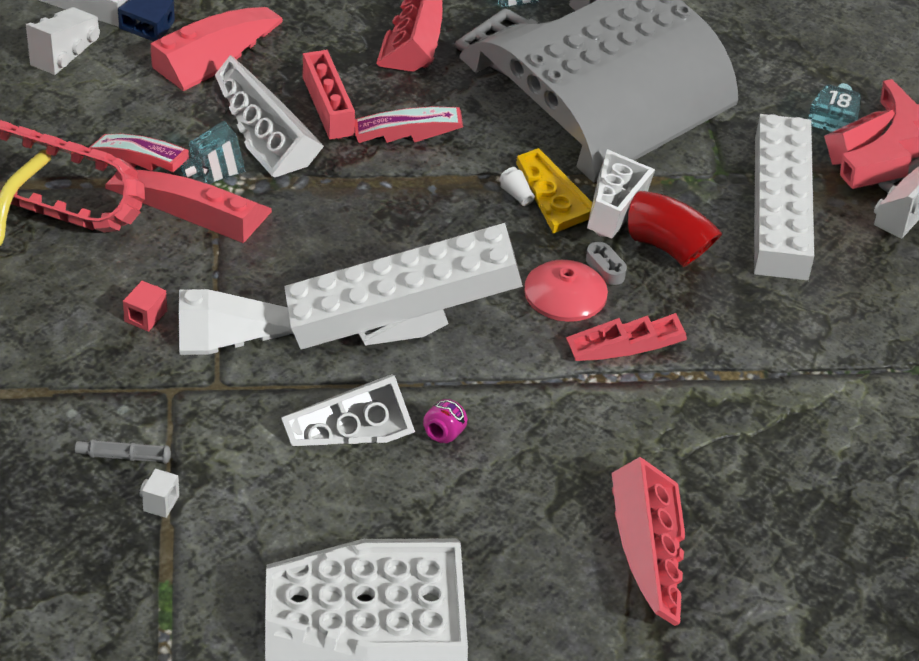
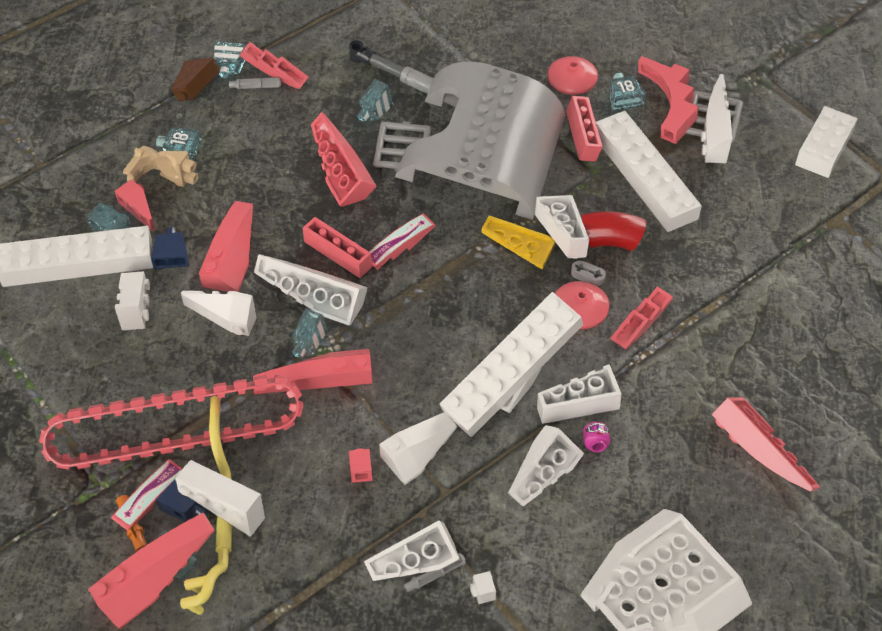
camera: 30 degrees left, 10 degrees up
(119, 417) = (420, 553): none -> white wedge
(142, 151) = (253, 357): slope -> none
(150, 91) = (231, 310): none -> white wedge
(463, 371) = (581, 397): none -> white wedge
(516, 185) = (498, 249): white cone -> none
(742, 118) = (584, 128): none -> coral brick
(789, 67) = (572, 75): none -> coral dish
(857, 134) = (654, 106): coral slope -> none

